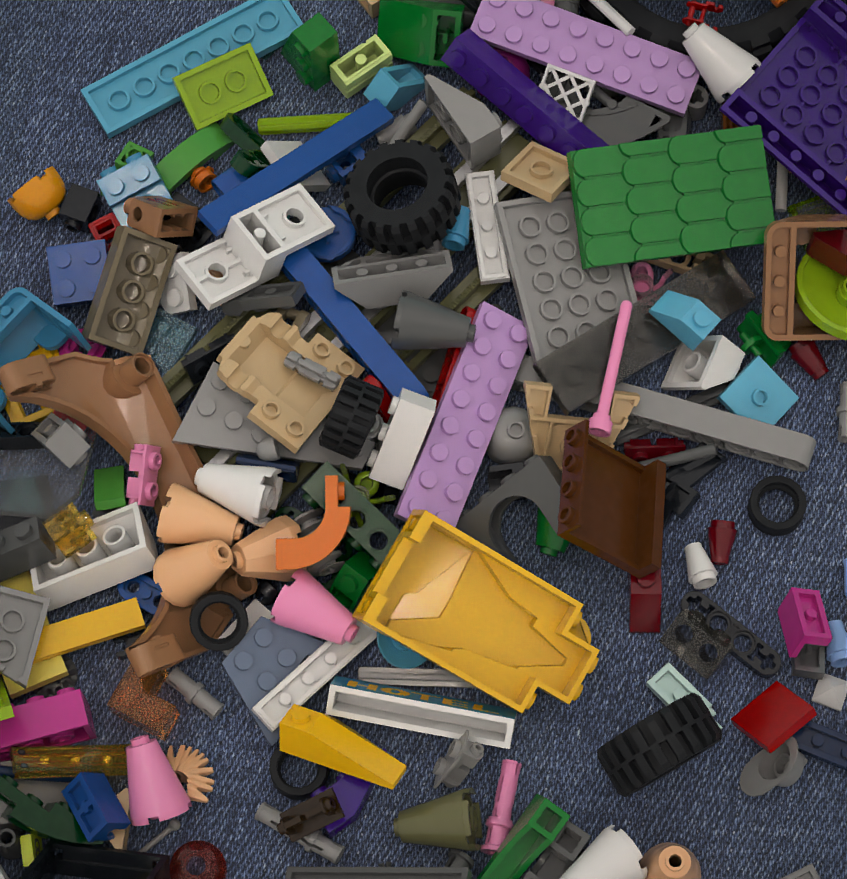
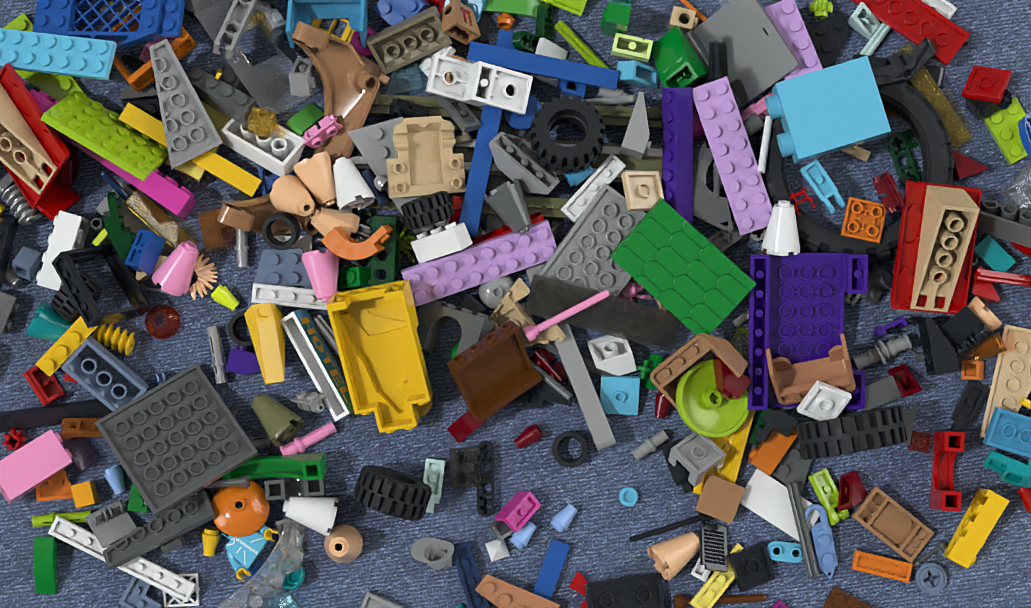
camera: 50 degrees right, 15 degrees up
(237, 764) = (225, 297): none -> neon yellow cone
(310, 815) = (224, 355): dark brown hinge -> none
(312, 370) = (438, 169): light grey axle -> none
(589, 82) = (712, 162): white window -> none
(685, 317) = (624, 327): medium azure slope -> none
(699, 567) = (507, 436): white cone -> none
(773, 717) = (458, 533): red tile -> none

